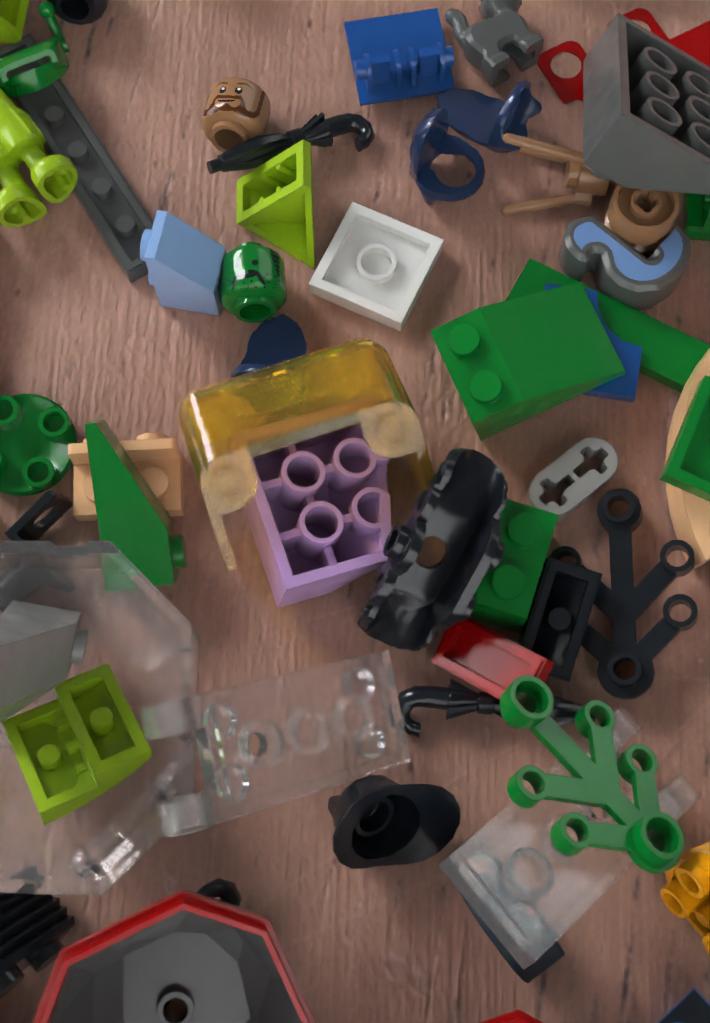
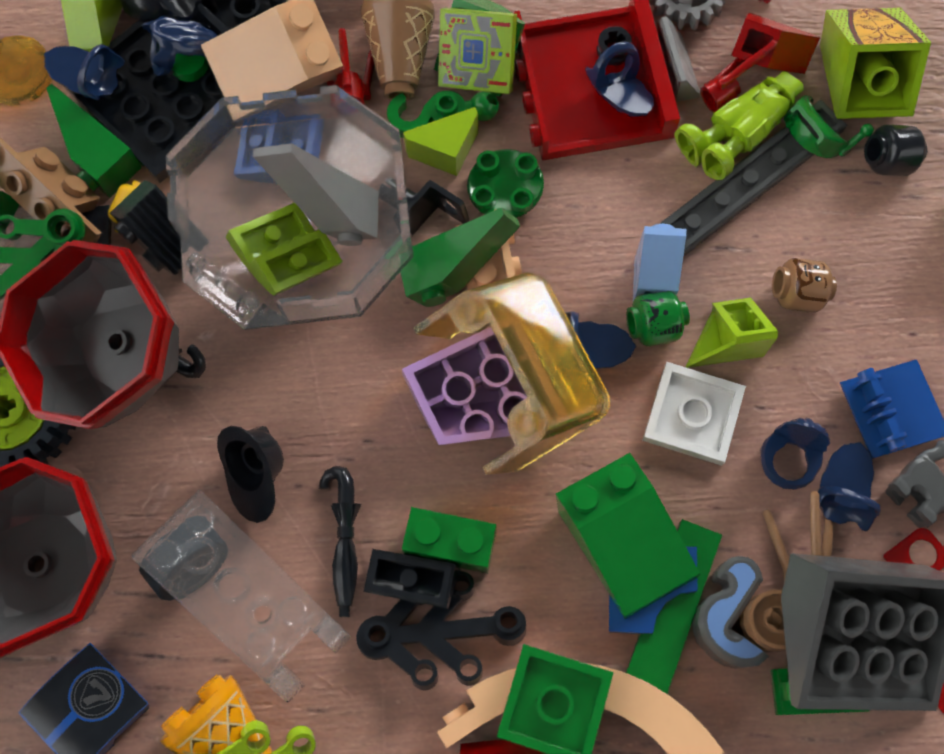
camera: 85 degrees right, 0 degrees up
(312, 730) = (299, 398): clear hinge -> none
(316, 131) = (803, 349): black piece -> none
(465, 513) = (478, 488): black piece -> none
(487, 658) = (371, 531): tile -> none
(564, 470) = (524, 593): light grey beam -> none
(593, 781) = (275, 607): green plant -> none

